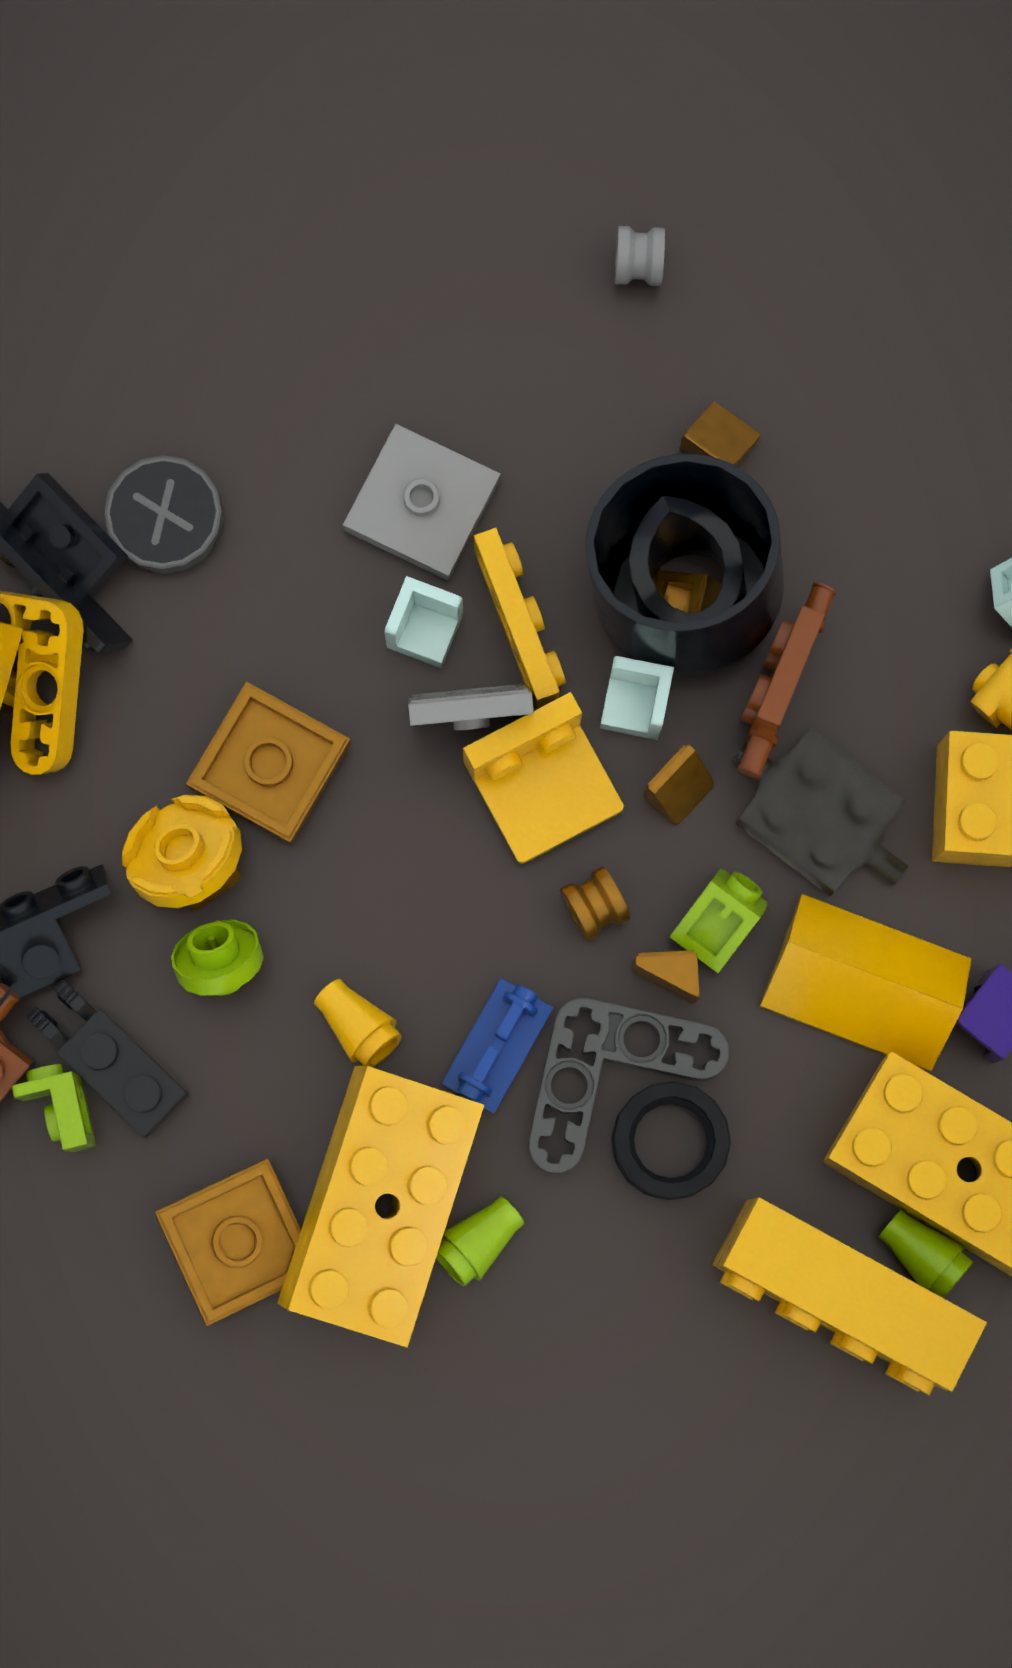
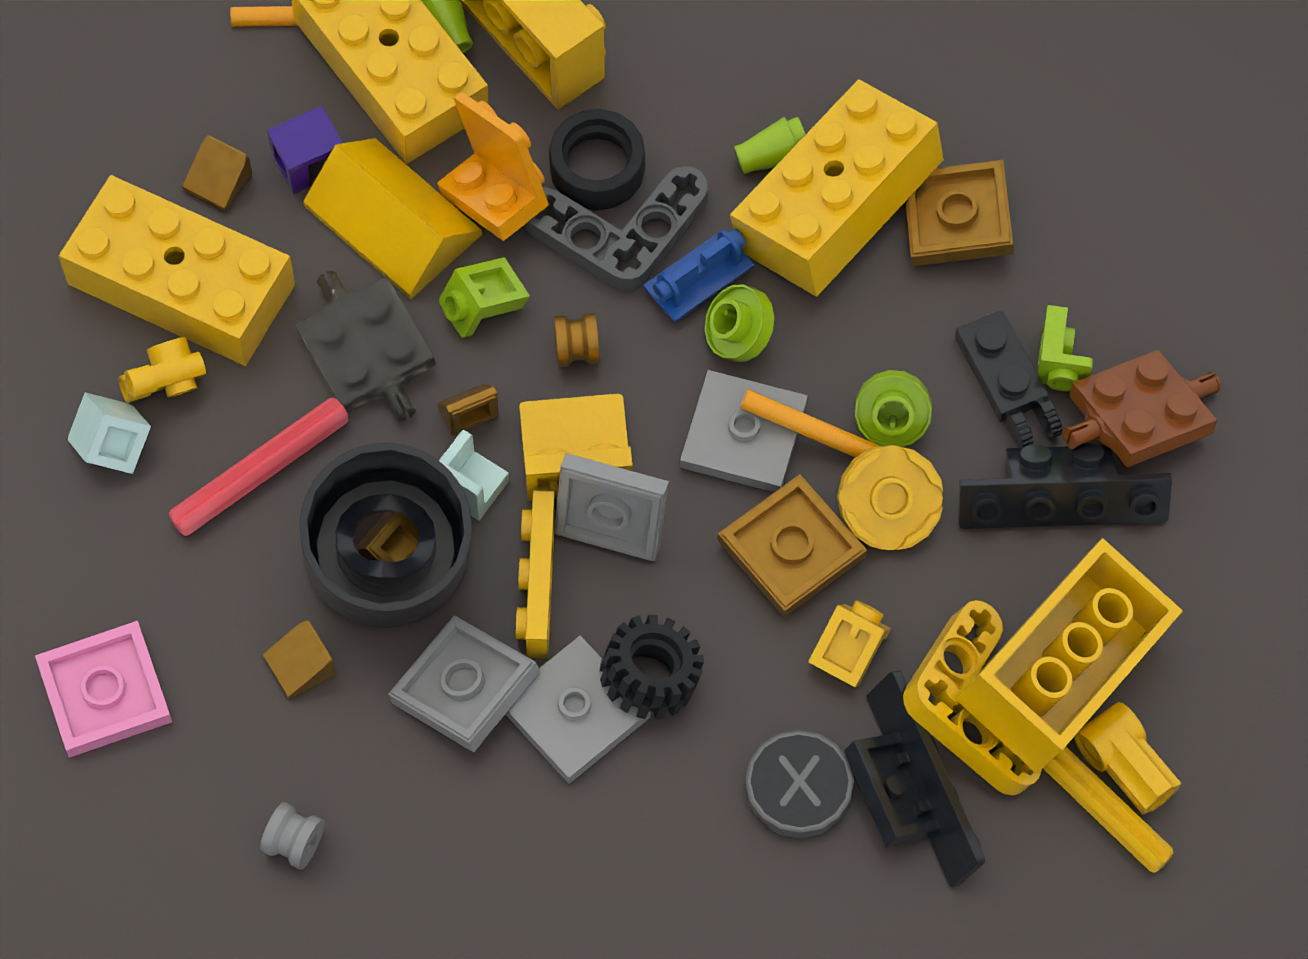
camera: 155 degrees left, 15 degrees down
(165, 680) = (850, 642): none -> yellow bracket
(294, 902) = (804, 424): none -> light orange bar
(322, 565) = (643, 690): none -> black tyre
(360, 1027) = (801, 325): yellow cone -> none
(372, 878) = (735, 442): none -> light grey plate
(424, 622) = (616, 602): light aqua panel -> none
(425, 992) = (739, 323): none -> lime plate
(542, 476) = (464, 683): none -> light grey plate
(670, 970) = (541, 270): pearl gold slope -> none
(771, 1049) = (499, 181): none -> light orange bracket
(773, 694) = (356, 420): dark orange plate -> none
(864, 629) = (258, 466): none -> coral axle
(900, 336) = (103, 689): none -> bright pink tile

